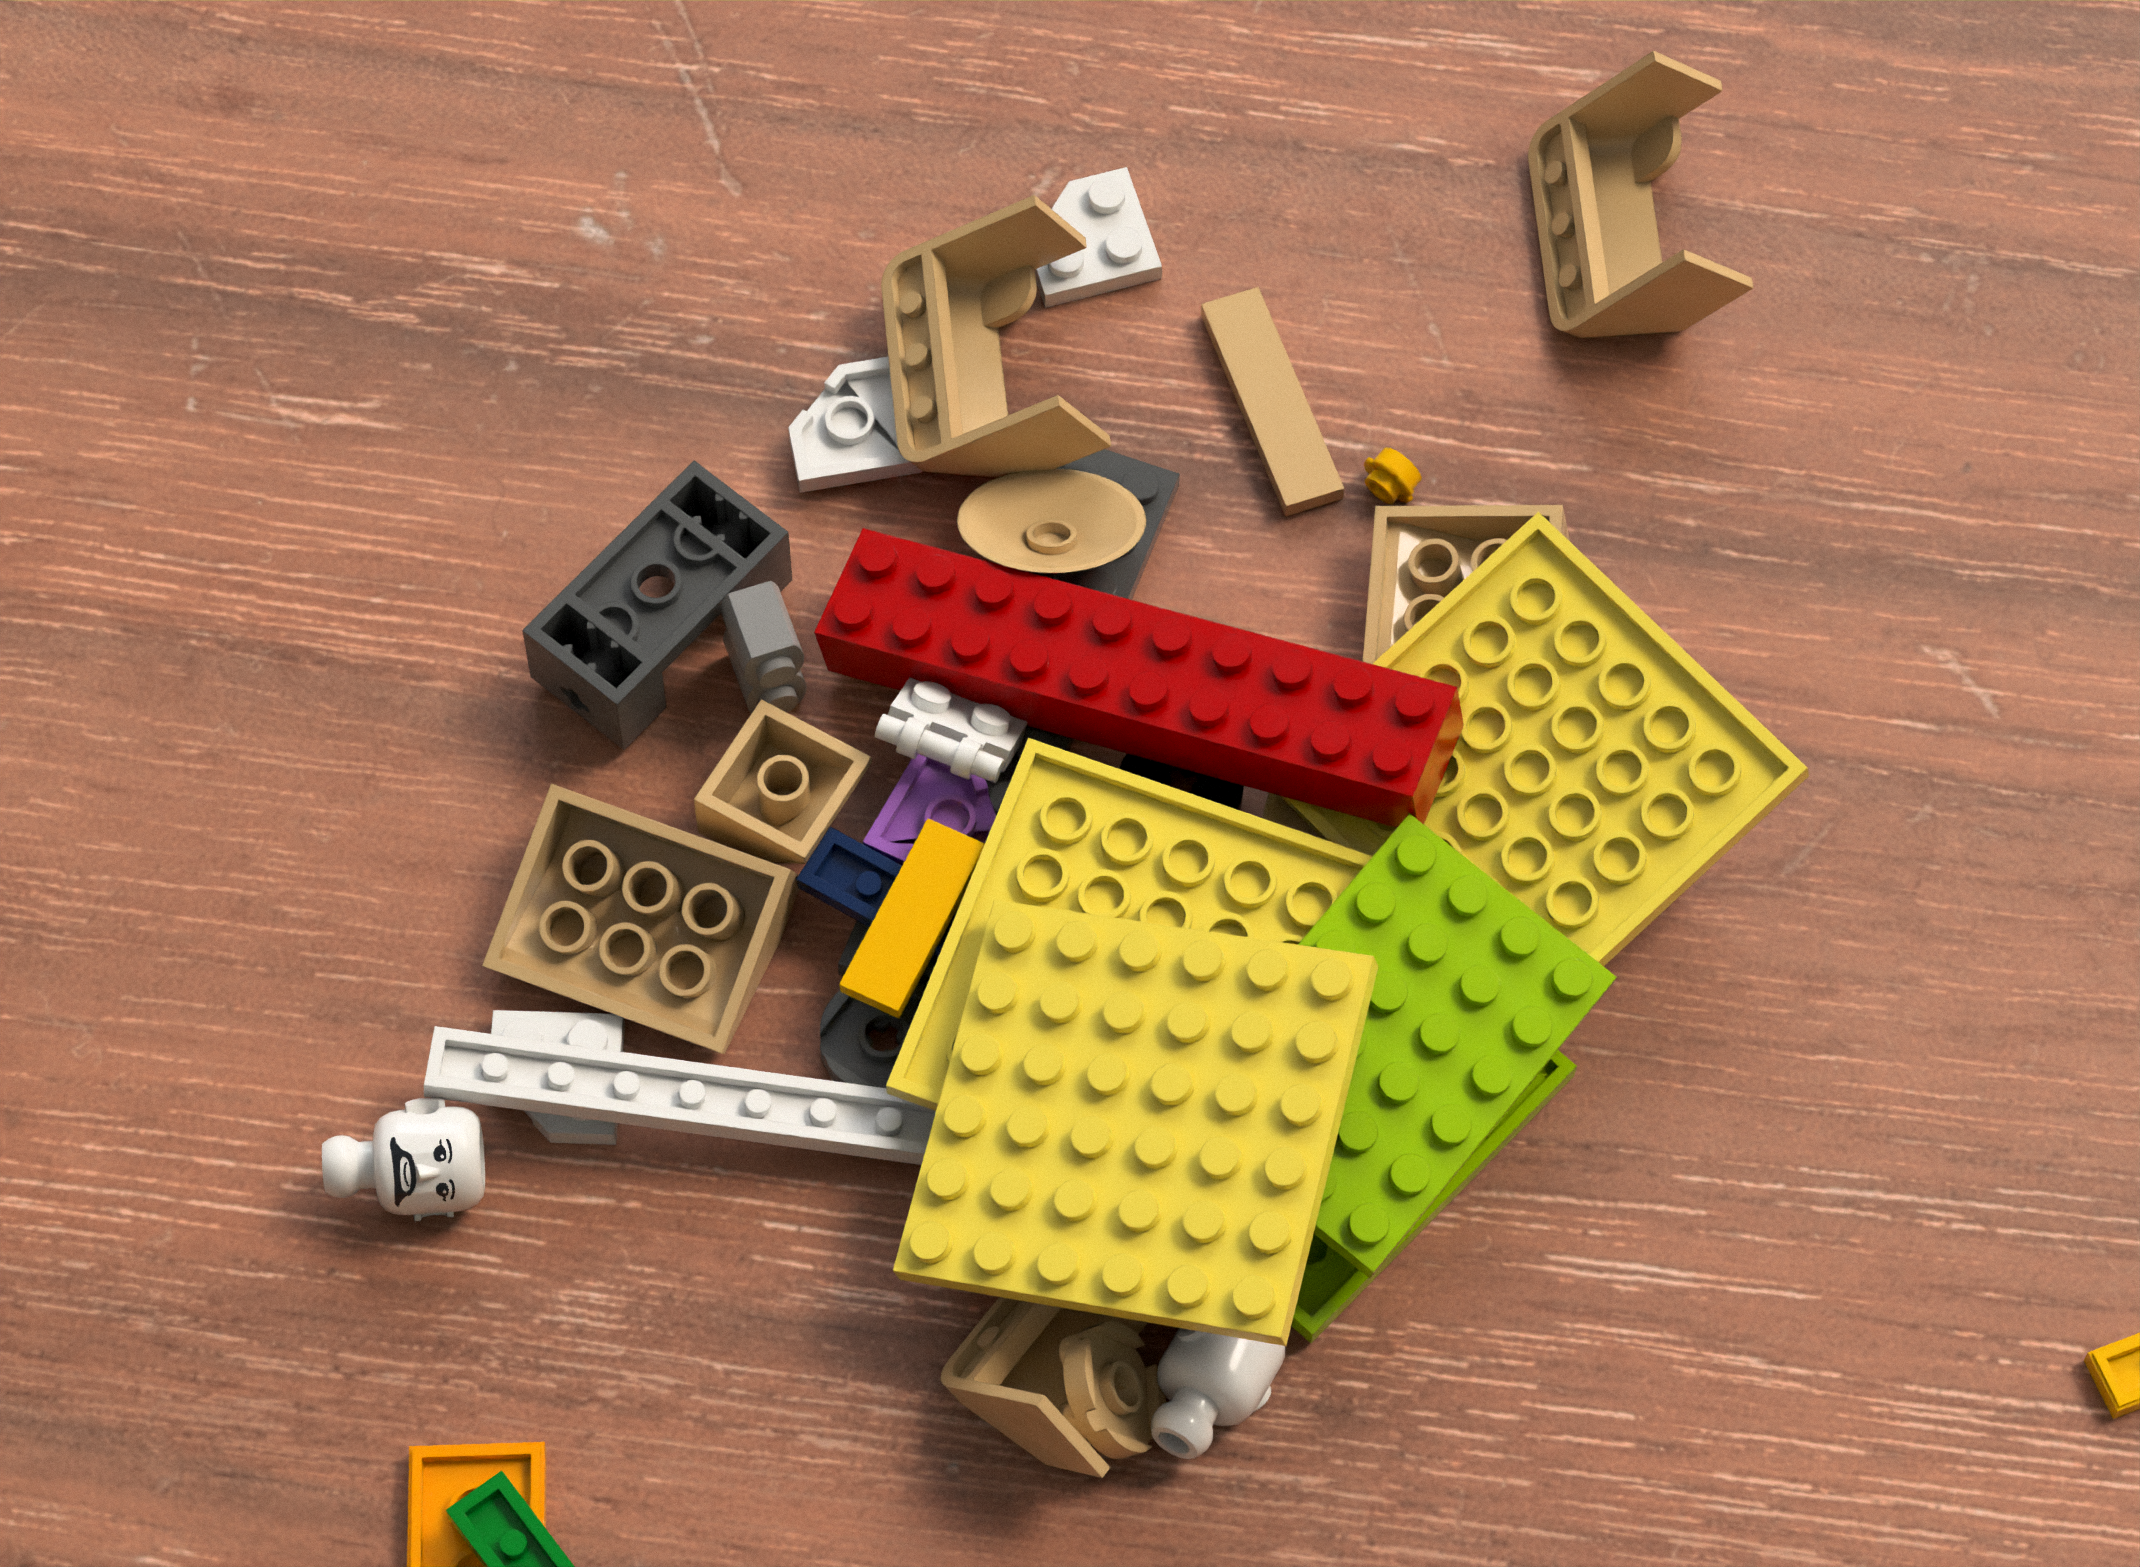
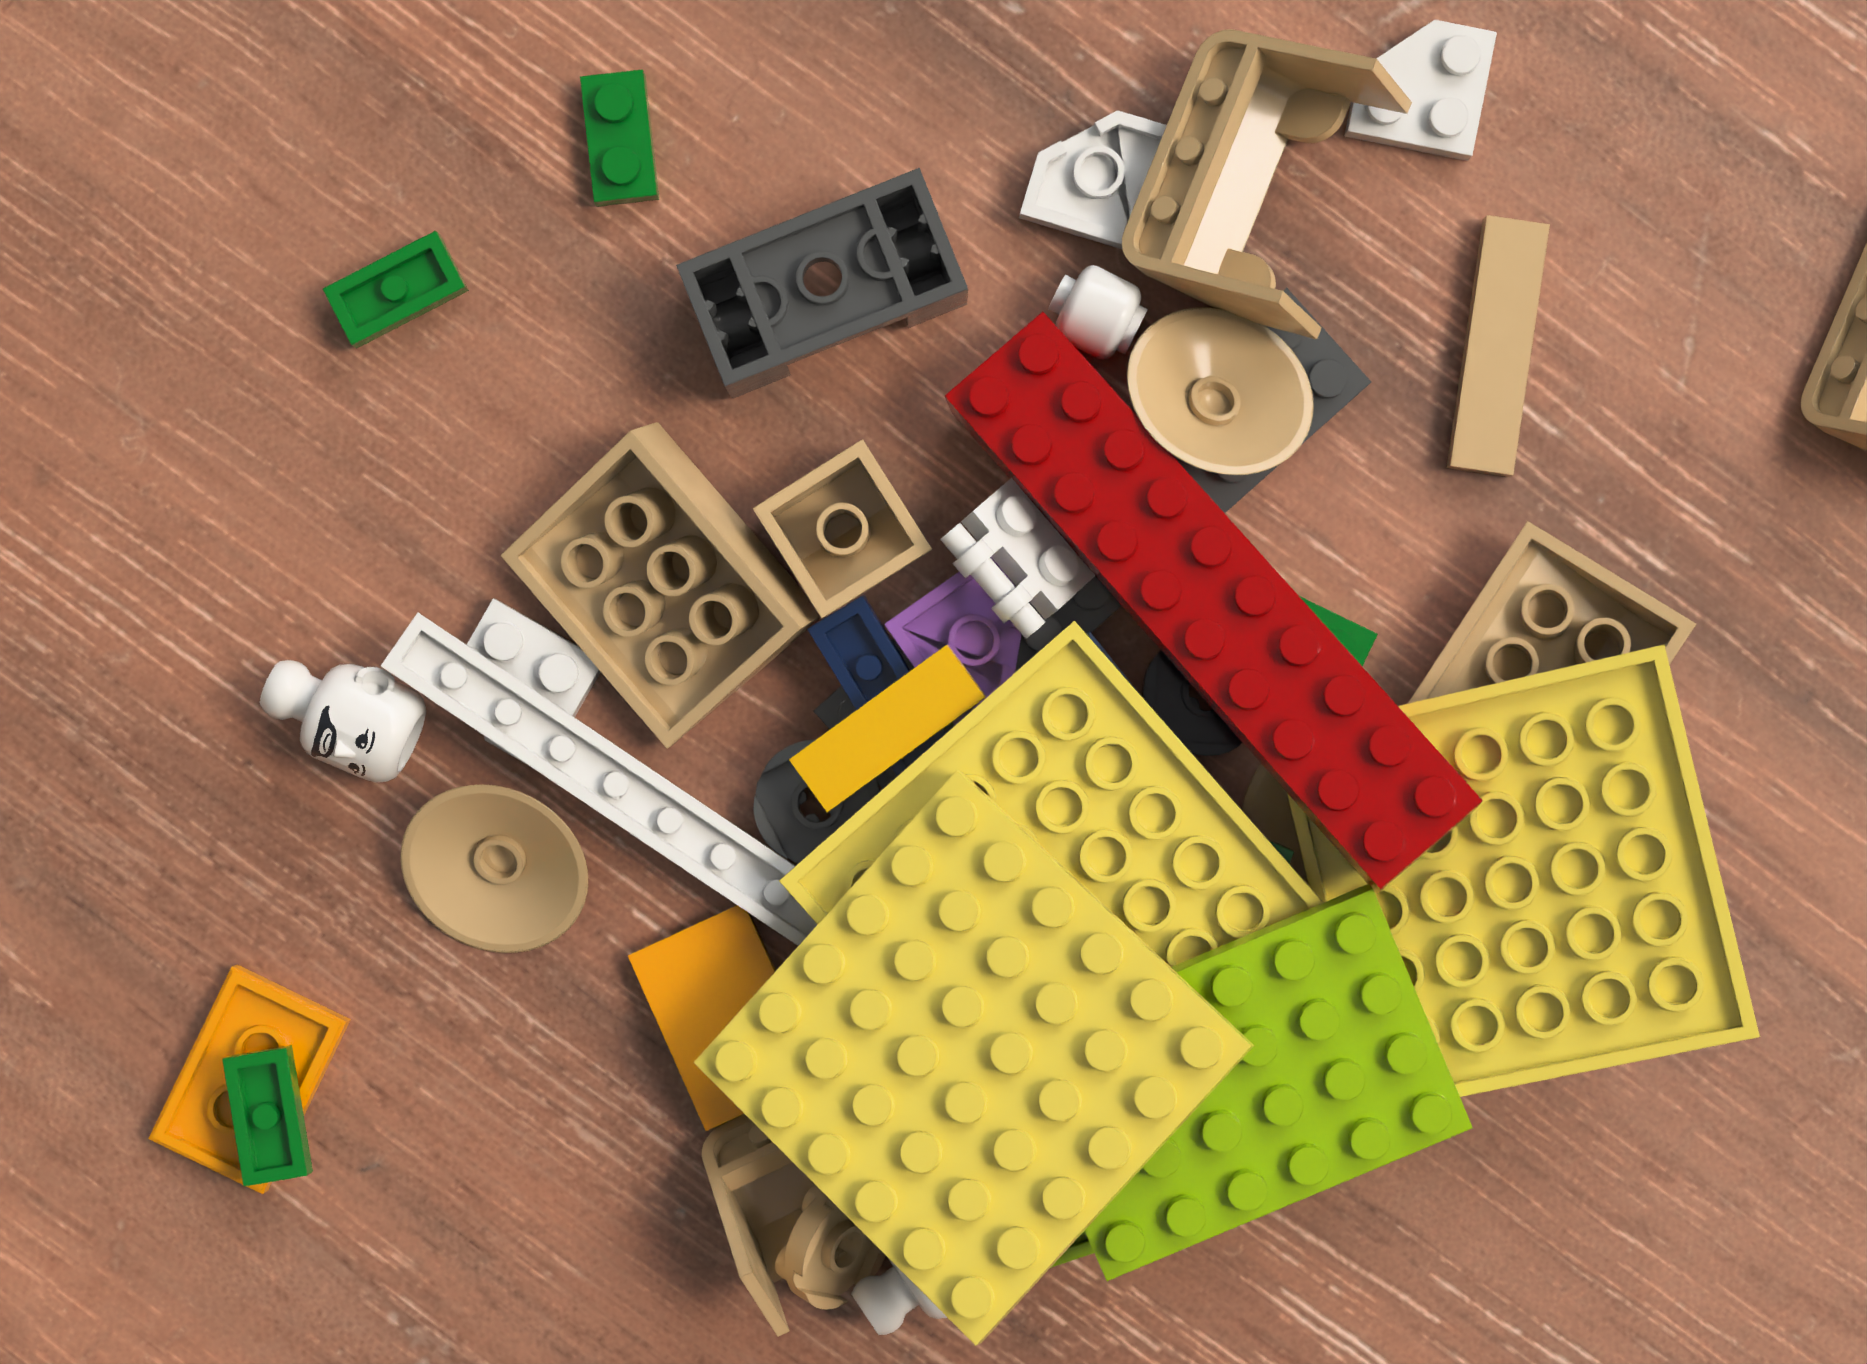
camera: 30 degrees right, 25 degrees up
(270, 799) = (395, 289): none -> green plate
(410, 591) = (619, 138): none -> green plate
(616, 1229) = (494, 868): none -> tan hat
(763, 647) = (895, 381): light grey brick -> none
(852, 1253) = (696, 988): none -> light orange tile
(913, 515) = (1098, 311): none -> white head
(1391, 476) = (1562, 485): yellow plate -> none

